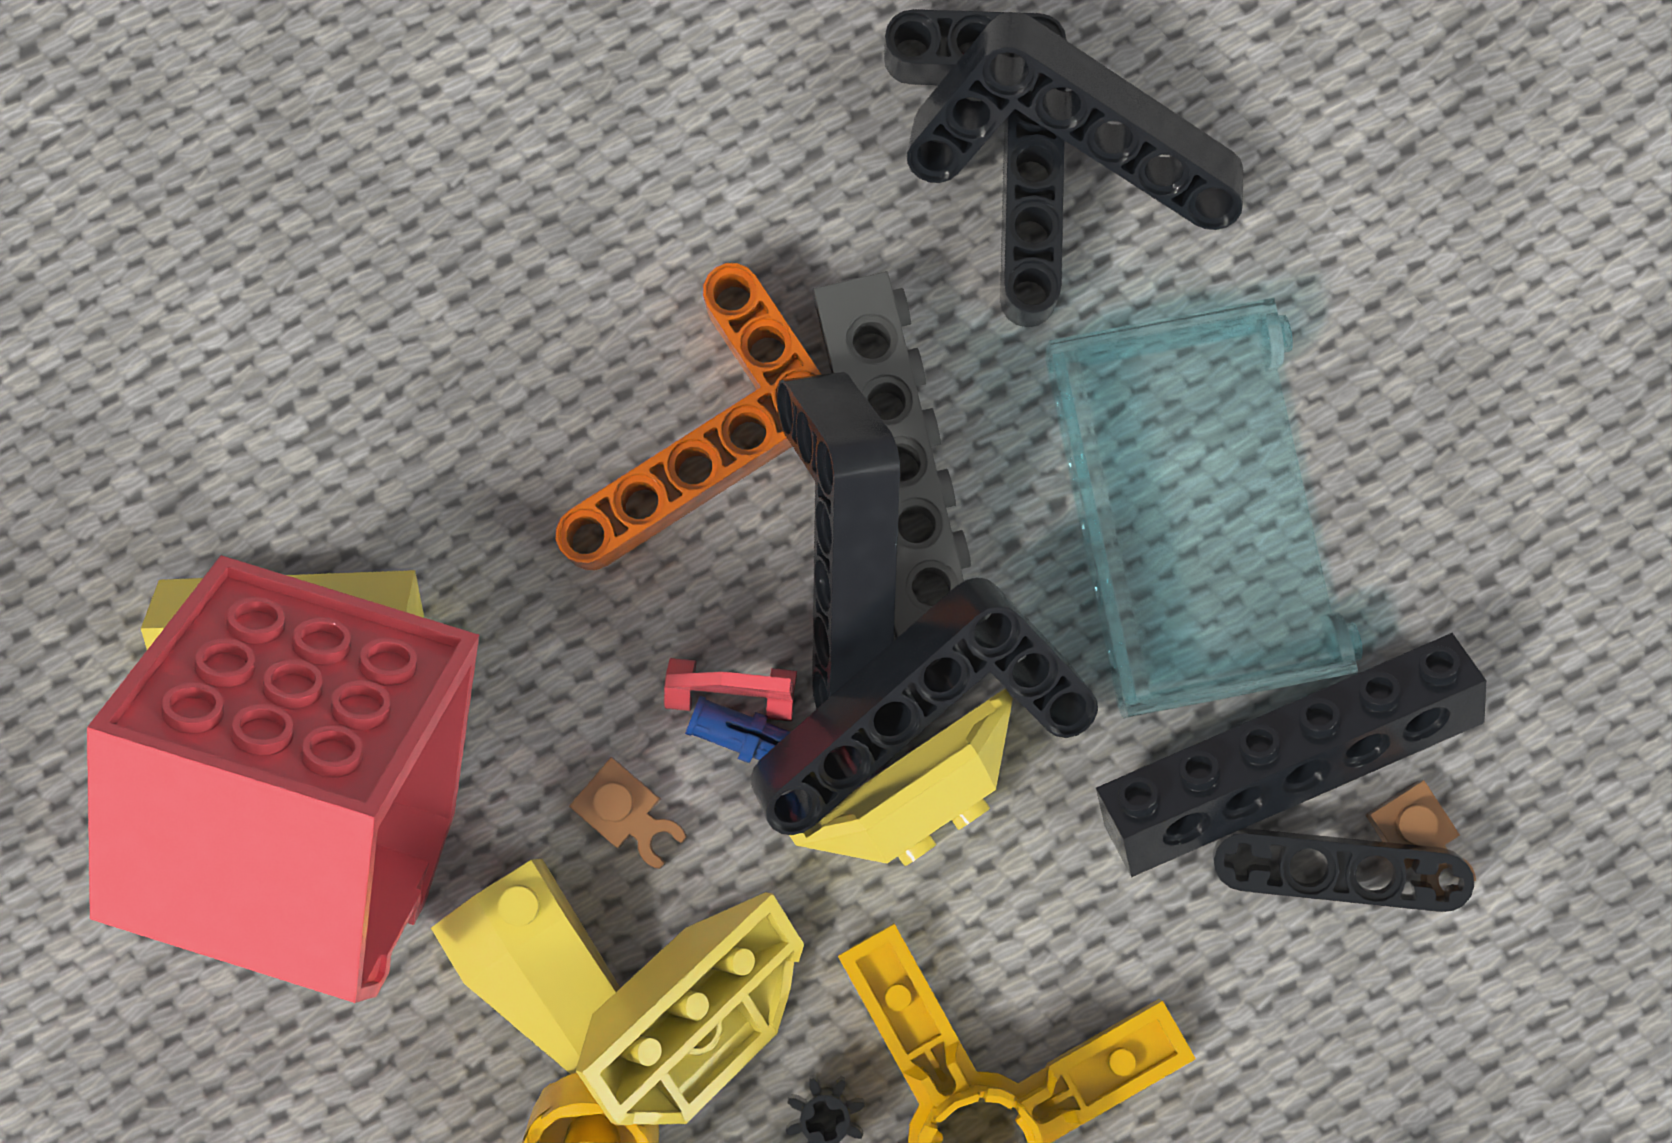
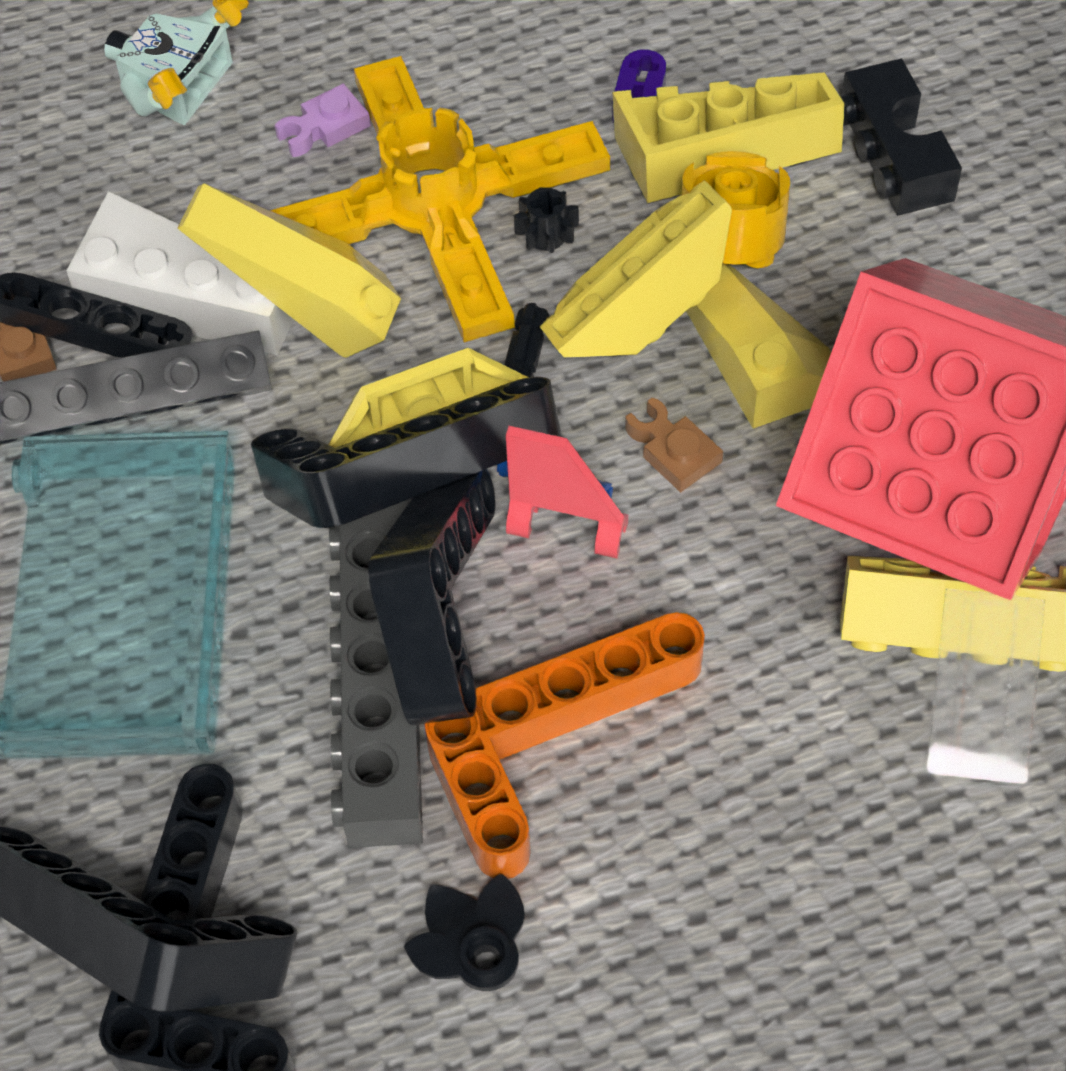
camera: 170 degrees left, 25 degrees down
(266, 513) = (985, 686): none -> clear piece
(756, 217) = (466, 928): none -> black plate
(819, 916) = (527, 340): none -> black axle
(1096, 954) = (296, 268): none -> light yellow wedge
(1274, 948) = (155, 266): none -> white wedge

